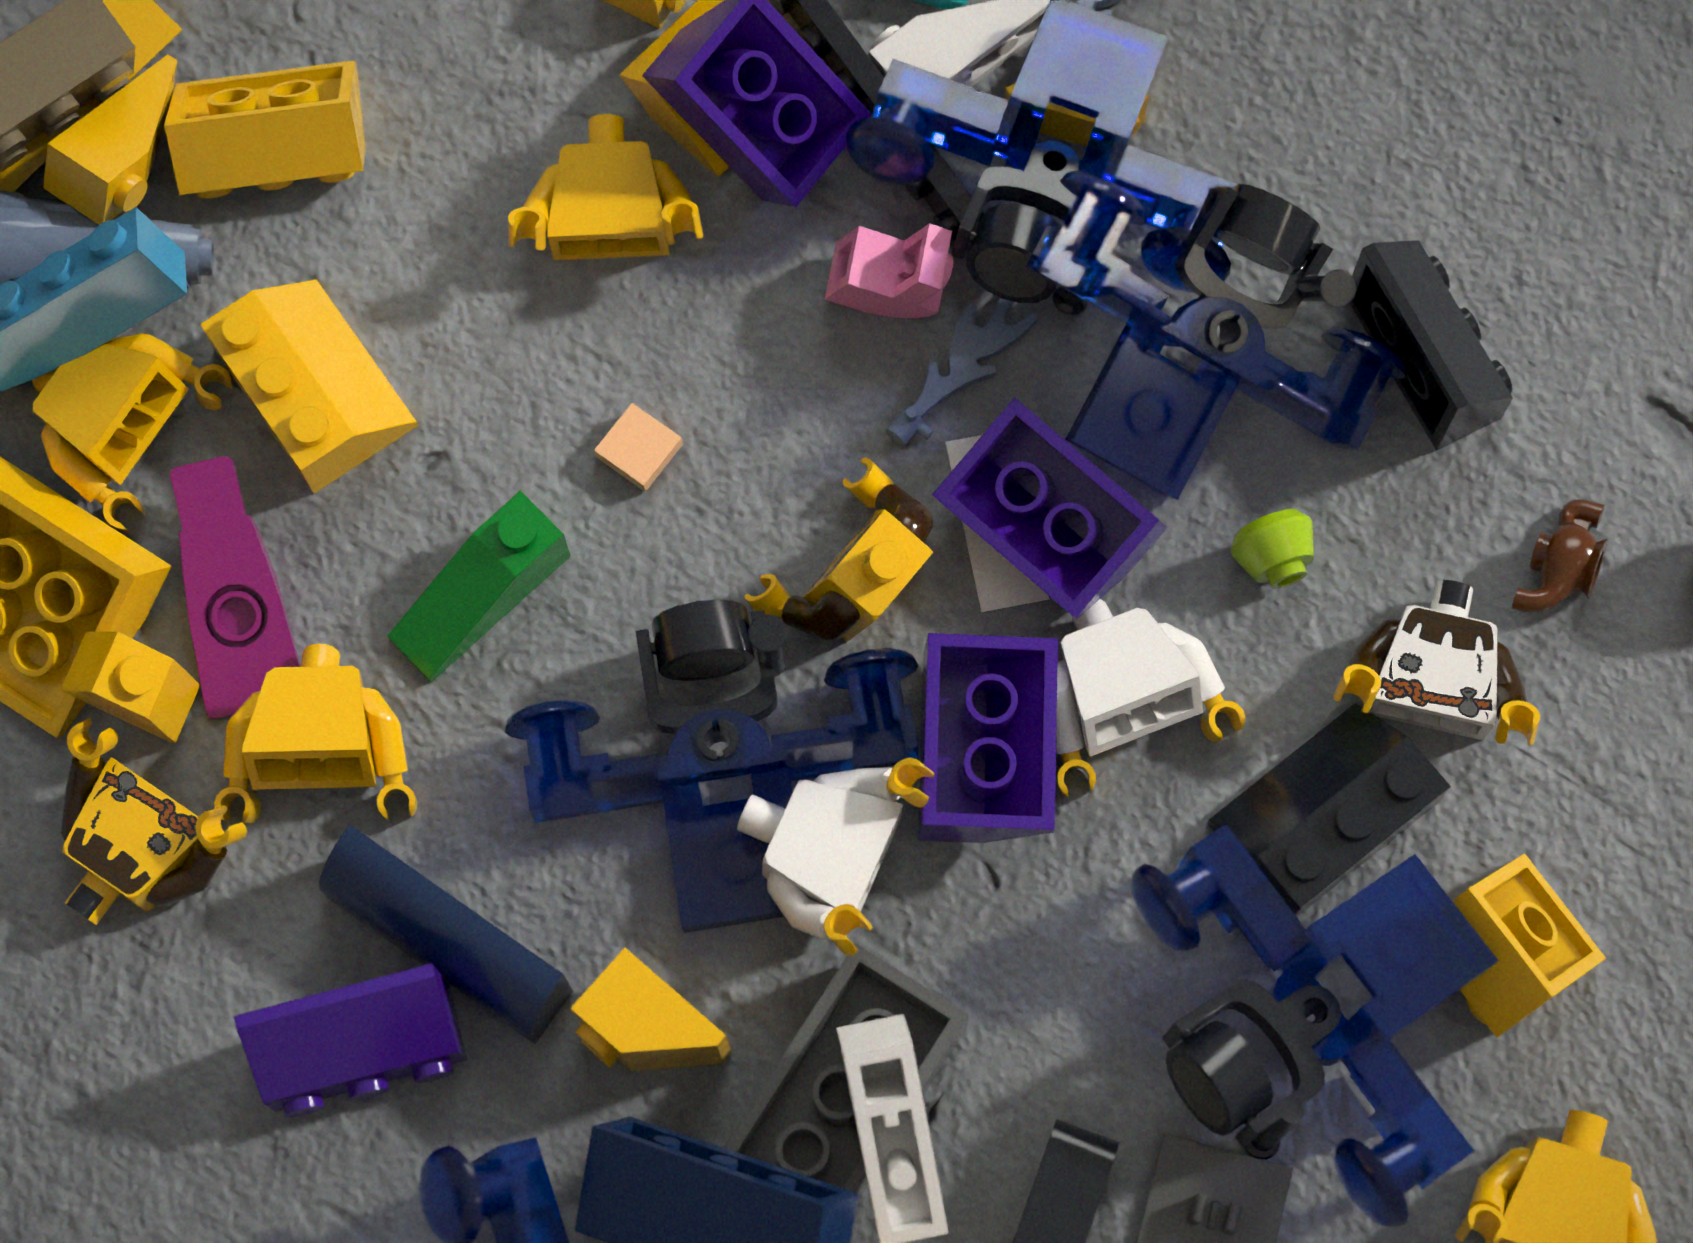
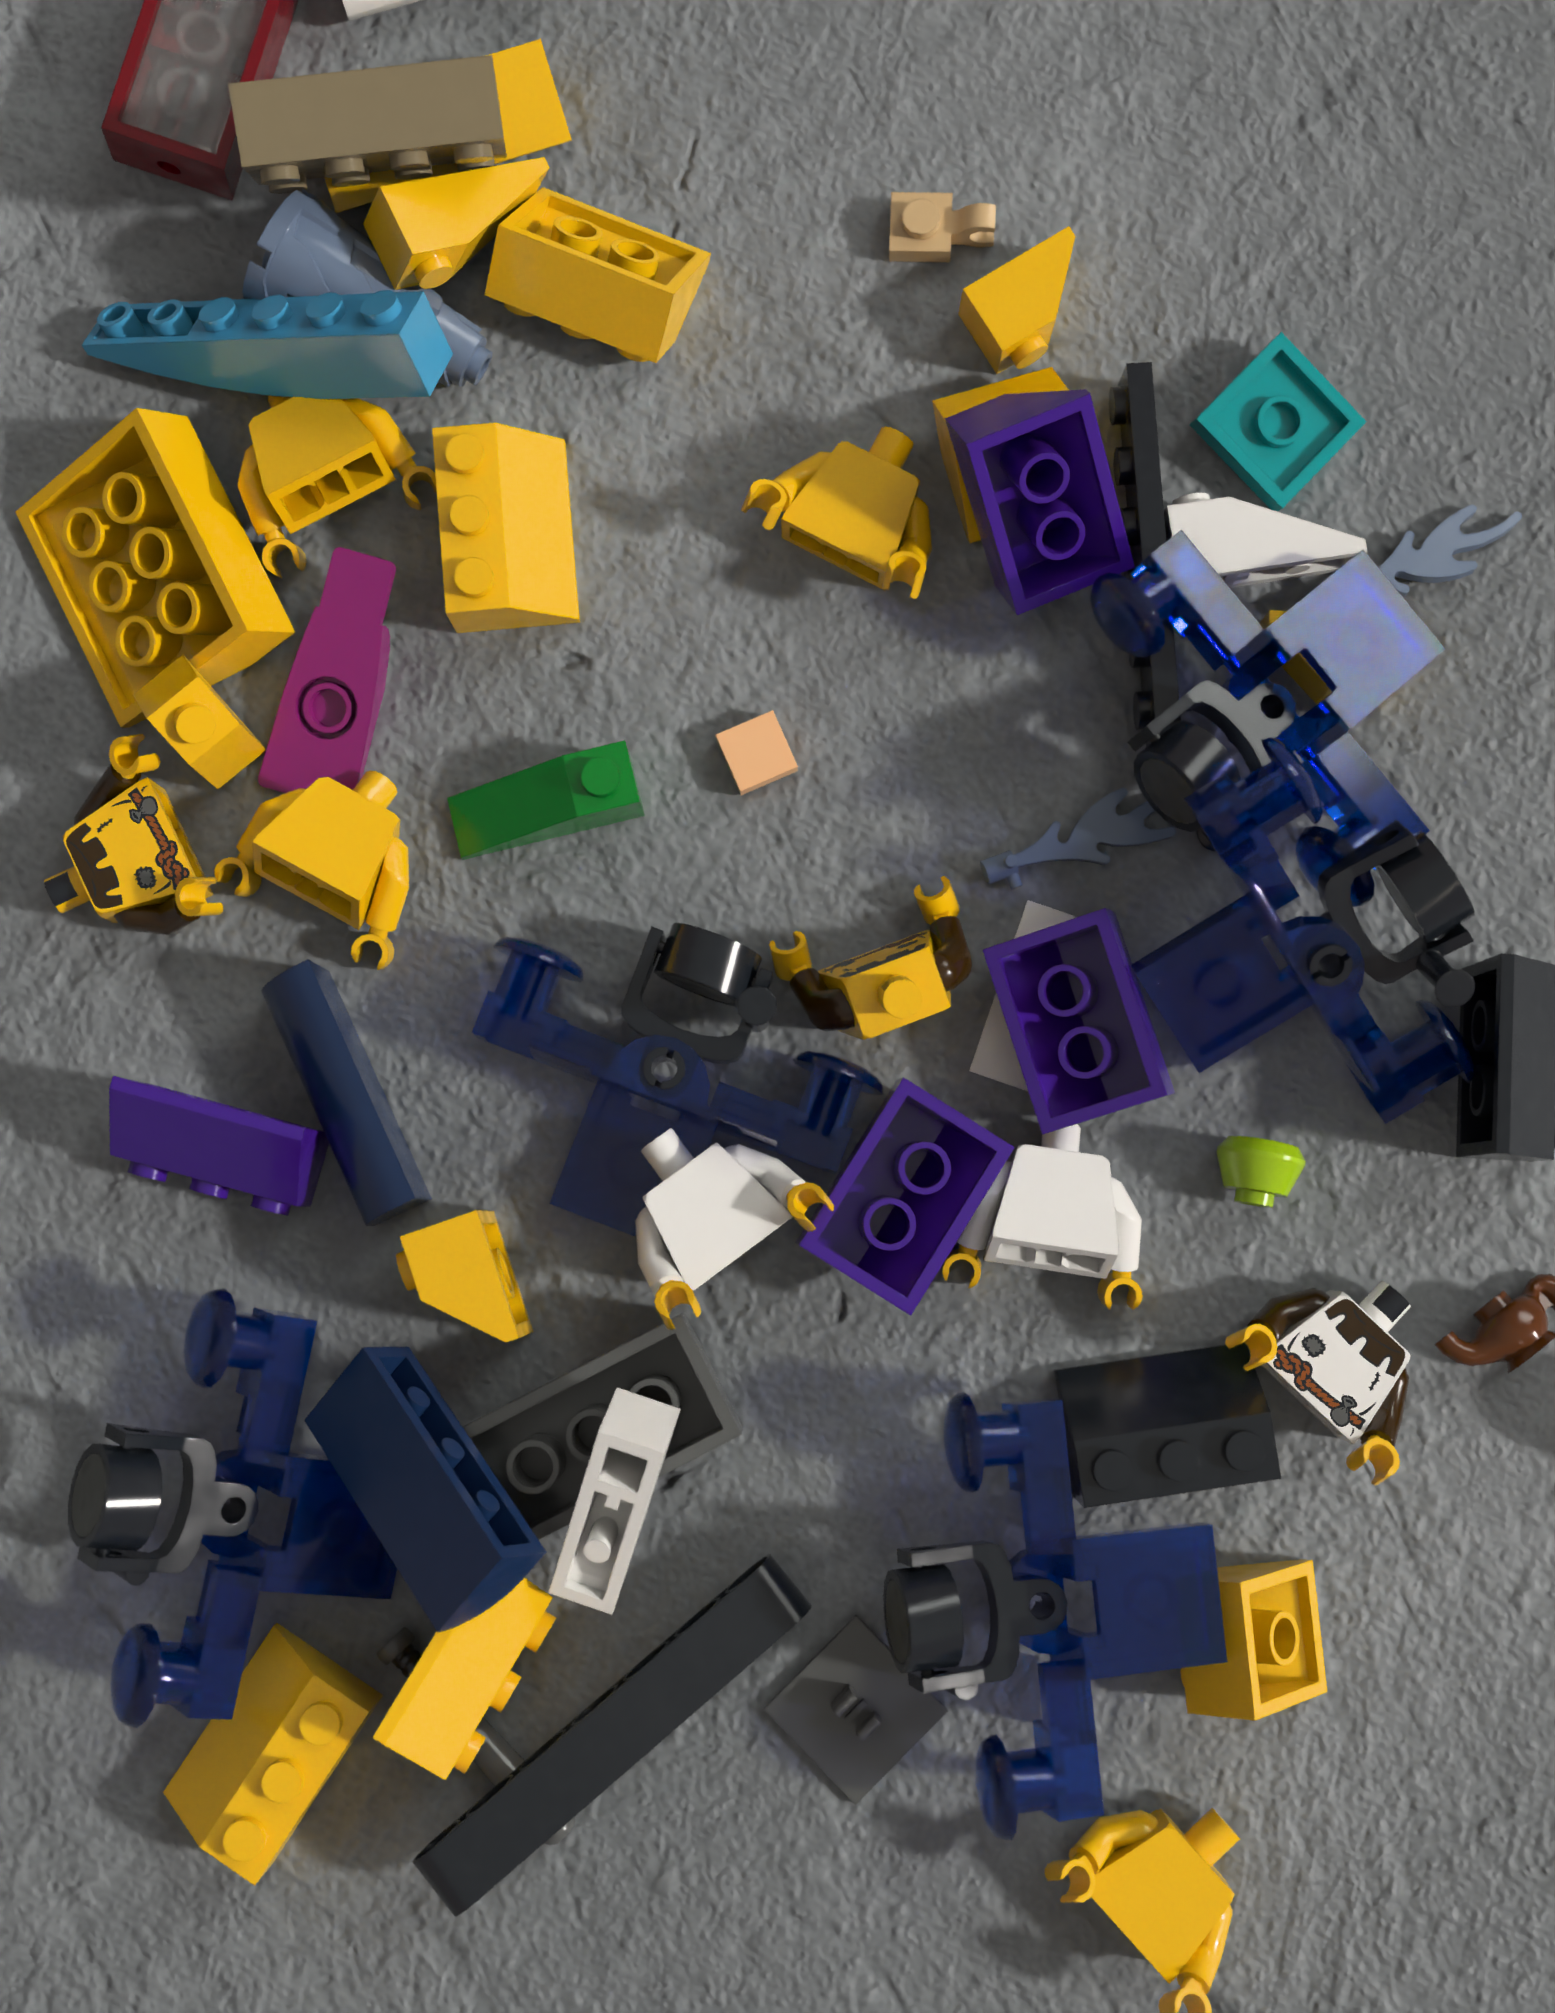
camera: 30 degrees right, 10 degrees up
(891, 274) = (1067, 722): bright pink brick -> none

